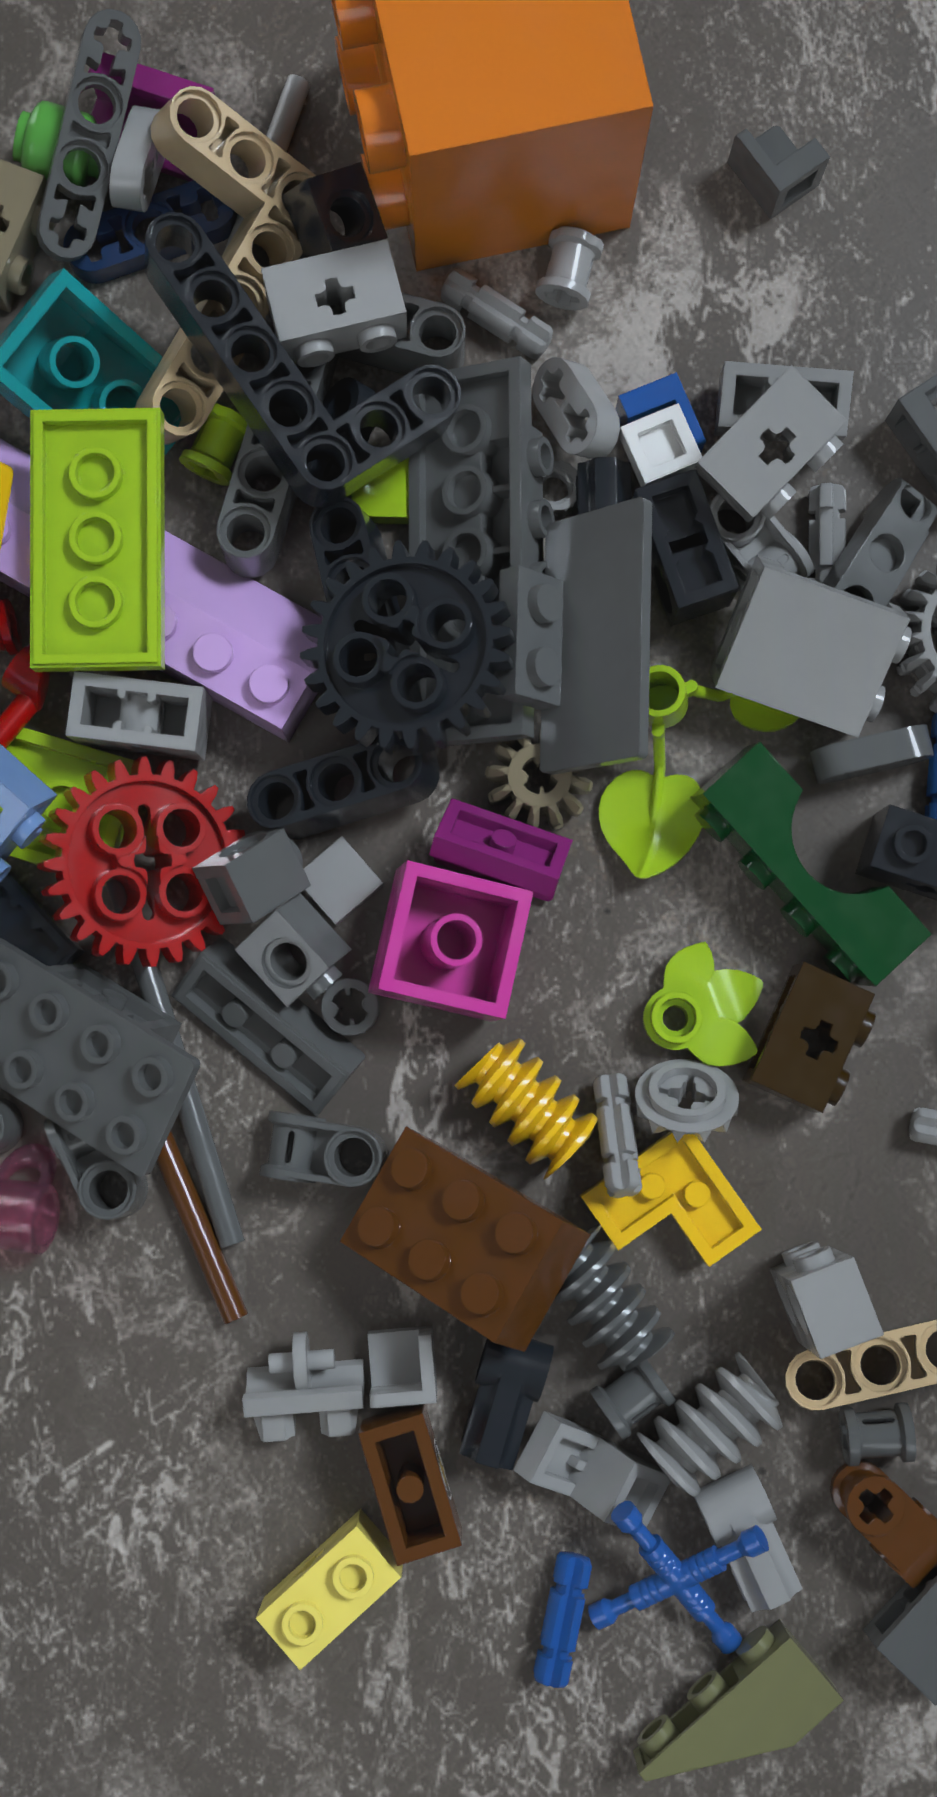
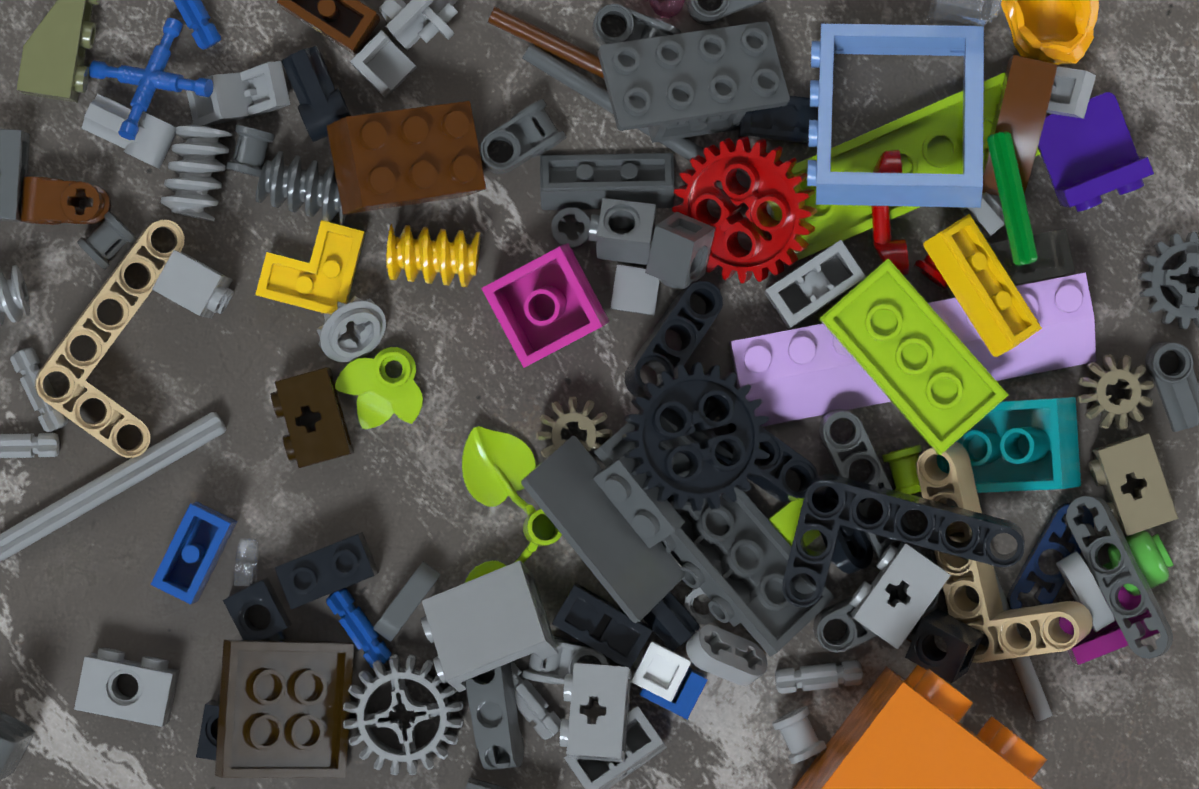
camera: 140 degrees right, 5 degrees up
(500, 849) = (561, 377): magenta panel -> none
(617, 1135) = (372, 279): light grey axle -> none
(754, 808) = (446, 515): dark green arch -> none

